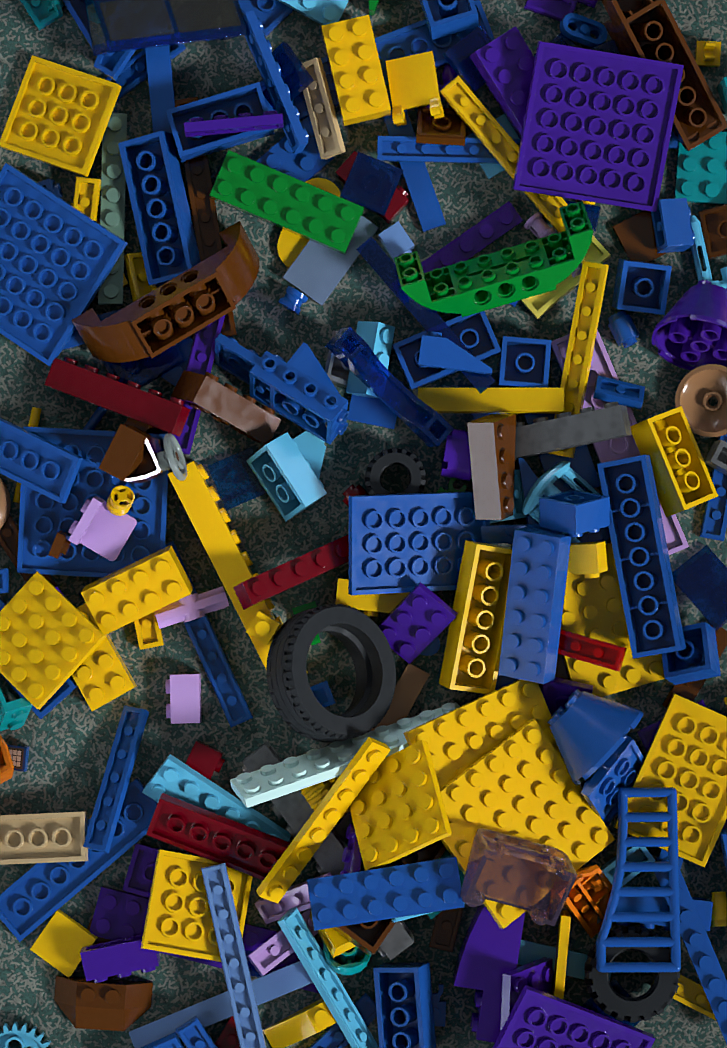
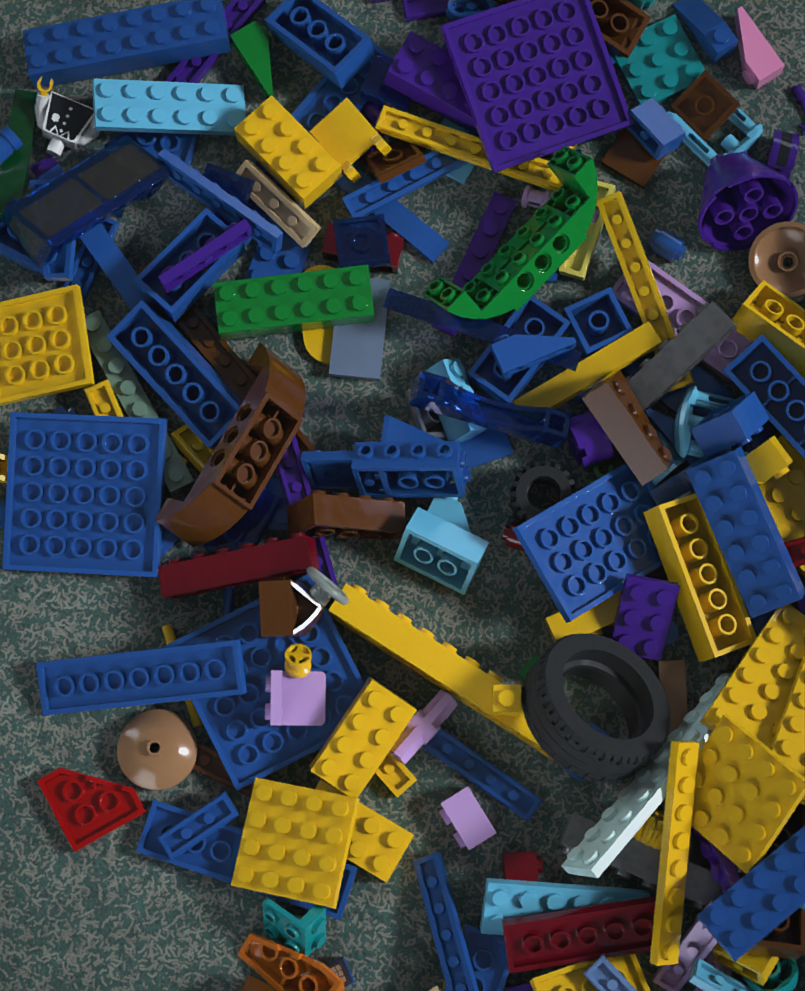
camera: 25 degrees left, 10 degrees down
(60, 545) = (264, 737): reddish brown plate -> none
(236, 479) = (394, 583): clear blue tile -> none
(293, 300) = (350, 389): blue wheel -> none
(293, 573) = (502, 633): dark red brick -> none
(396, 240) = (413, 281): medium blue brick -> none
(619, 391) = (690, 301): blue plate -> none
(641, 286) = (661, 196): blue brick -> none

